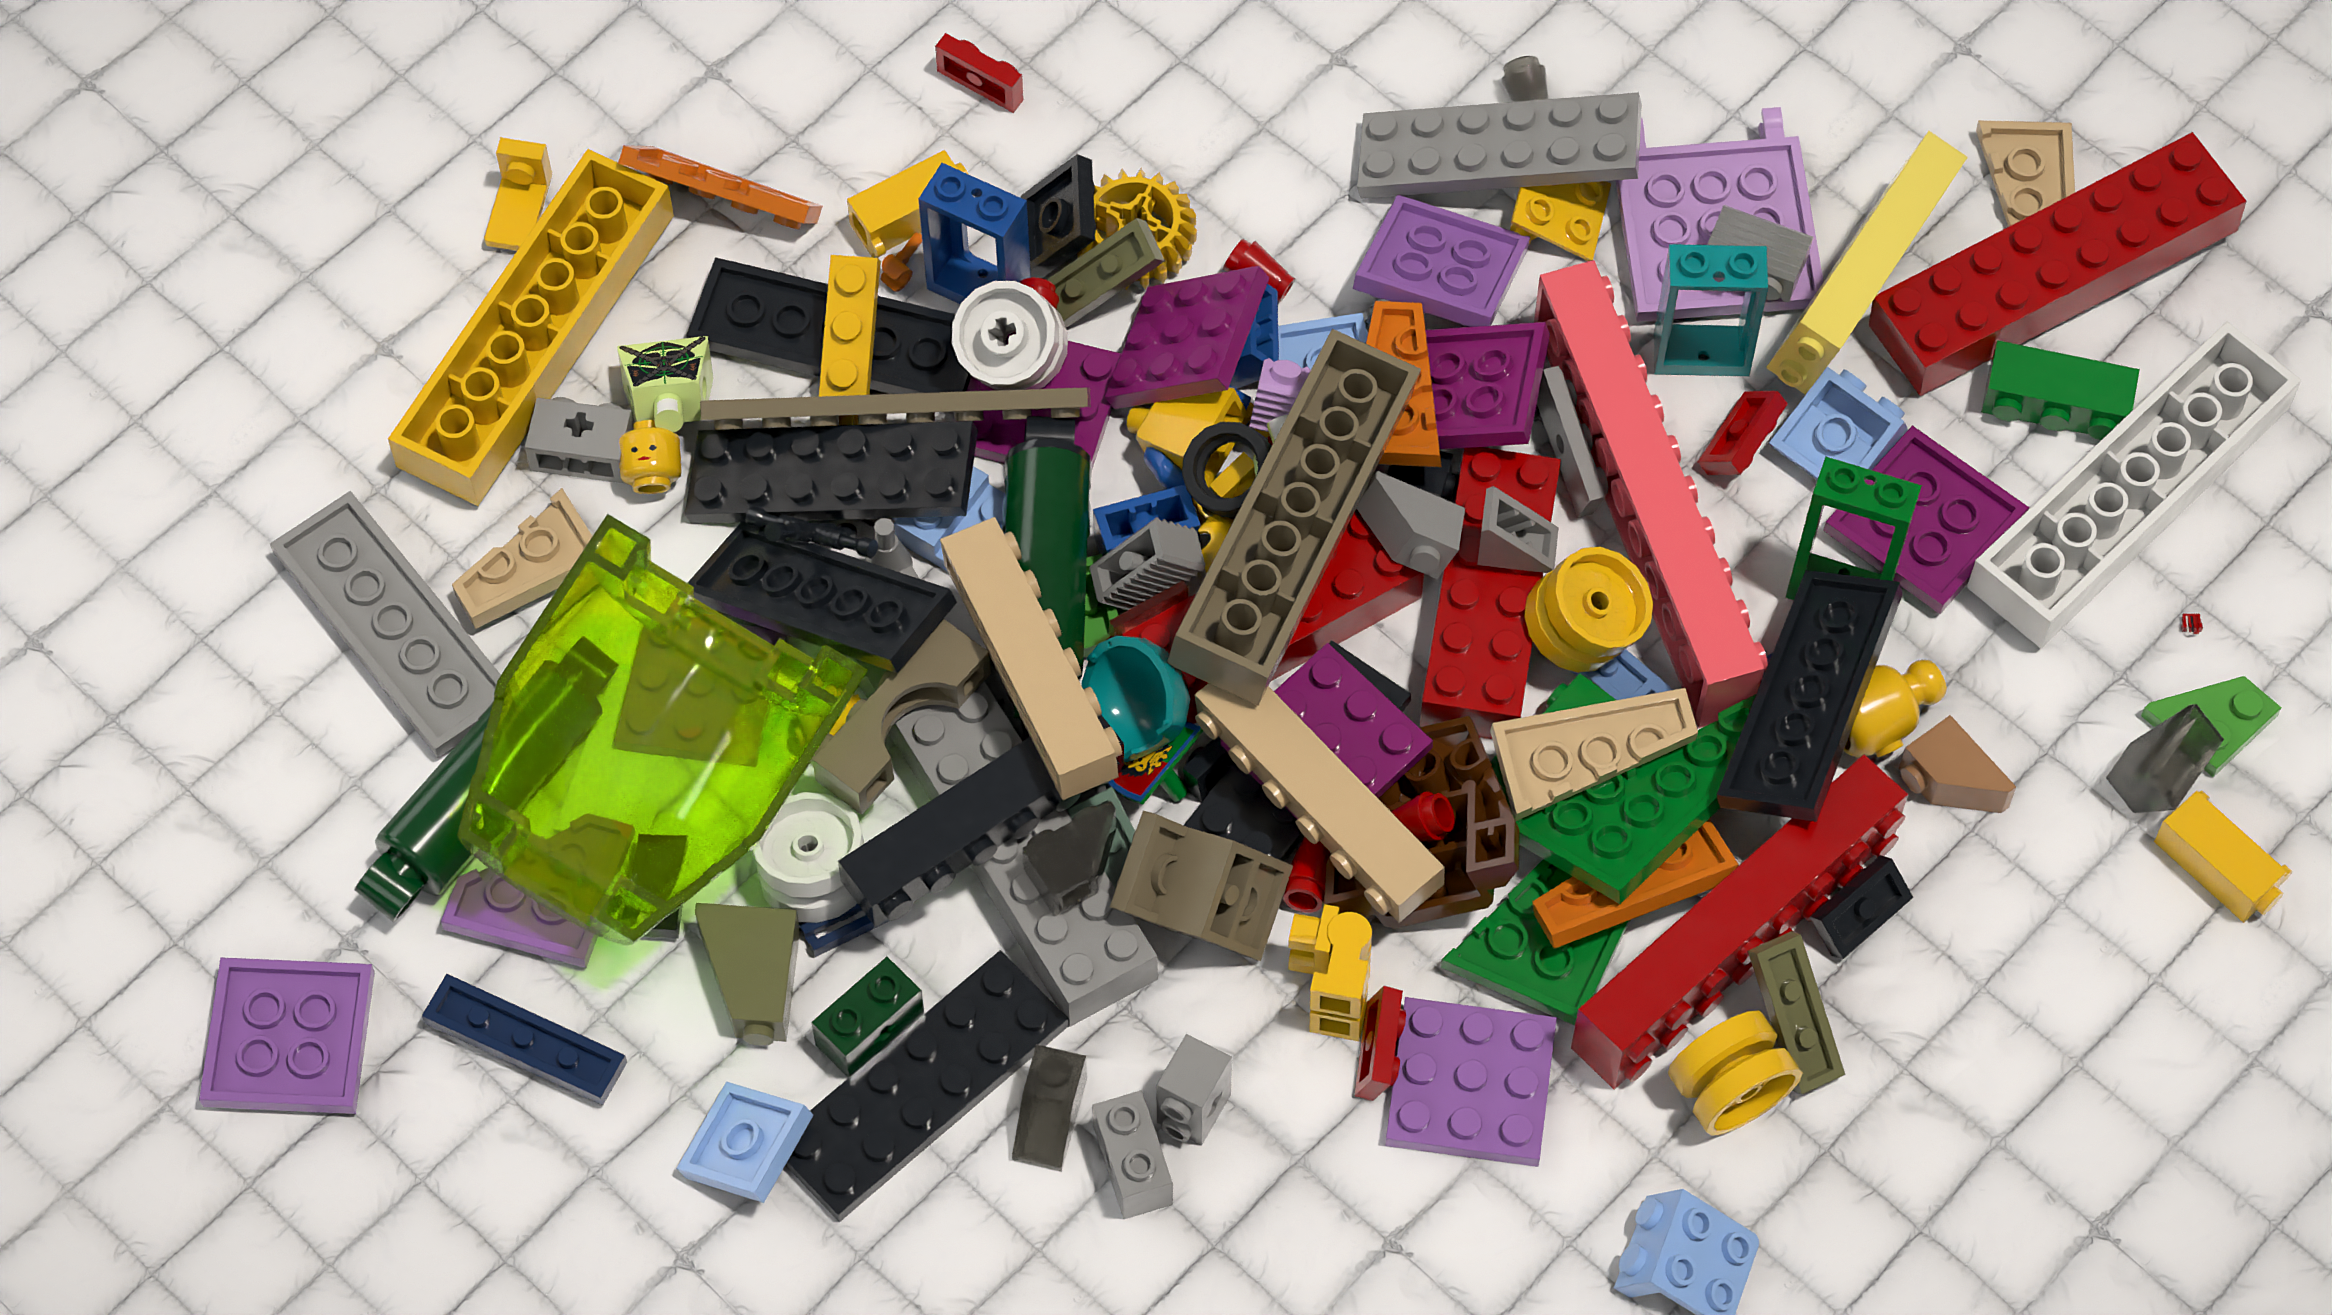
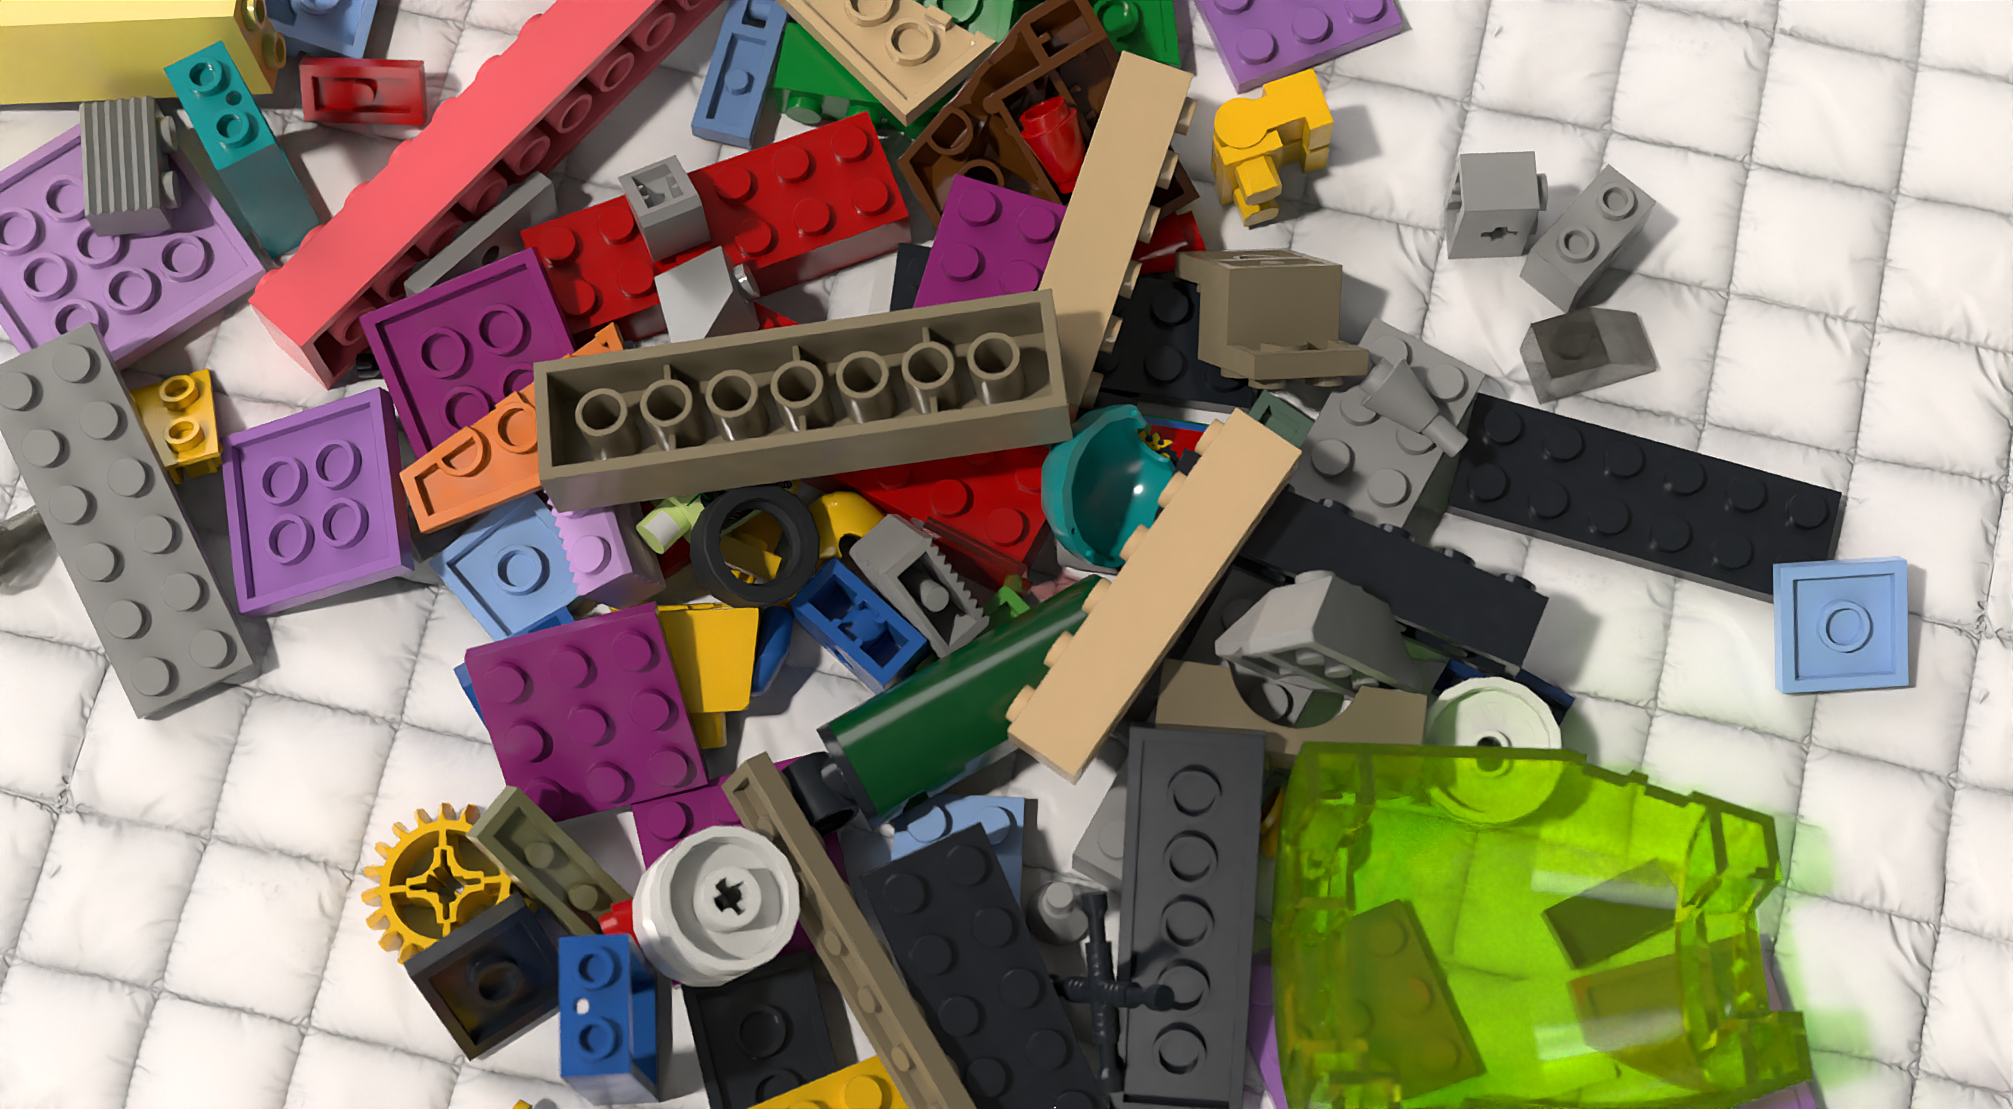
camera: 120 degrees left, 10 degrees up
(524, 1039) = (1881, 943): dark blue plate -> none
(753, 966) = (1653, 726): olive slope -> none
(868, 1017) = (1620, 586): dark green brick -> none
(927, 729) = (1322, 639): none -> light grey wedge
(1071, 860) = (1343, 438): clear smoke slope -> none
(1079, 918) = (1403, 399): none -> light grey cone
(1251, 255) = (429, 717): red cone -> none
(1381, 1028) = (1338, 62): red plate -> none
(1588, 609) = (706, 92): yellow wheel -> none

